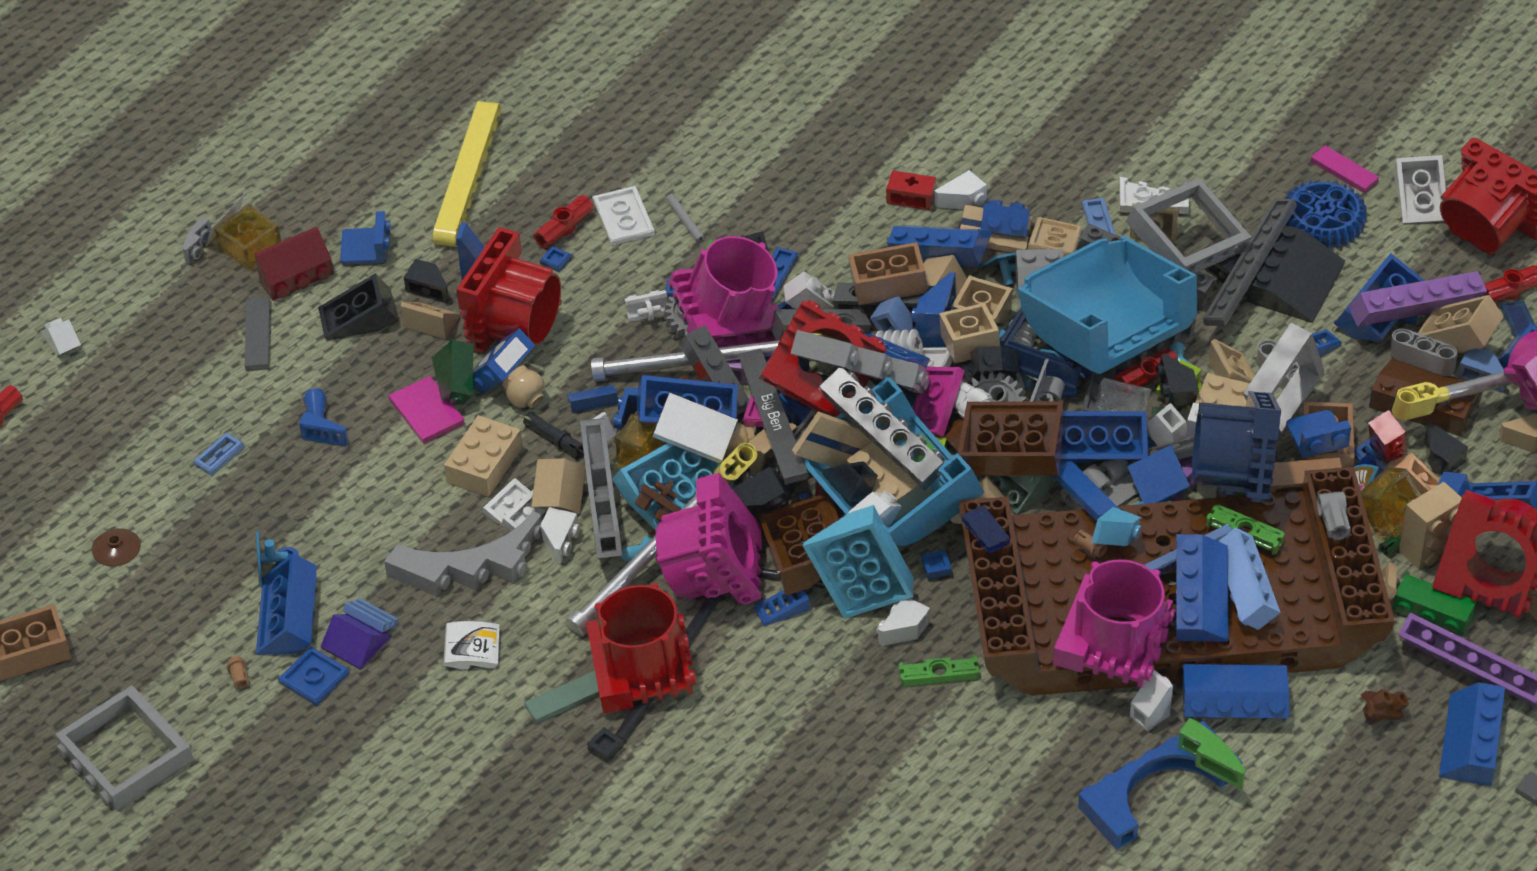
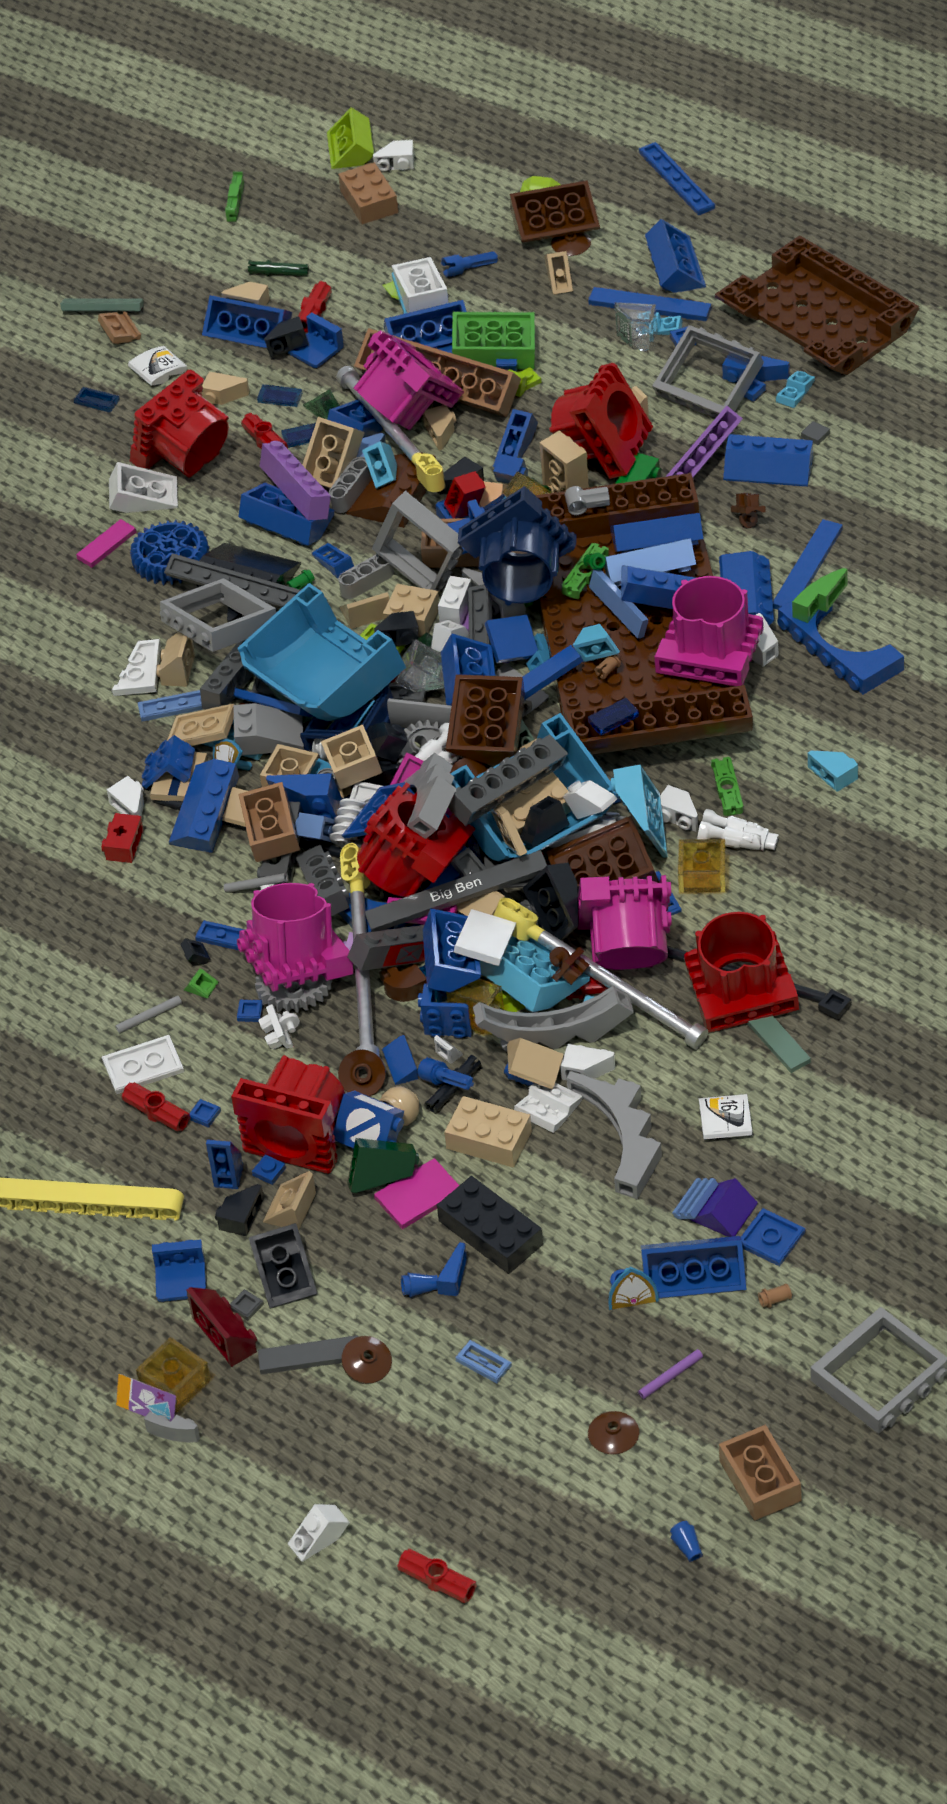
camera: 90 degrees left, 0 degrees up
(169, 590) = (670, 1374): none -> medium lavender piece
(244, 375) = (362, 1369): none -> reddish brown dish
(324, 290) = (246, 1304): none -> dark grey tile
(368, 455) = (490, 1224): none -> black brick
(563, 417) = (438, 1072): none -> blue piece
(575, 364) = (350, 1072): none -> reddish brown dish
(810, 635) = (702, 865): none -> clear yellow brick
(830, 293) = (256, 882): none -> light grey piece
(863, 673) = (737, 832): none -> white piece
(949, 765) = (833, 768): none -> medium azure slope
(1242, 523) = (595, 561): none -> green pin
(1278, 318) = (301, 580): none -> green pin
(1297, 766) = (808, 562): none -> blue tile
(1301, 590) = (656, 532): none -> blue slope
(1446, 369) = (381, 463): none -> medium azure slope

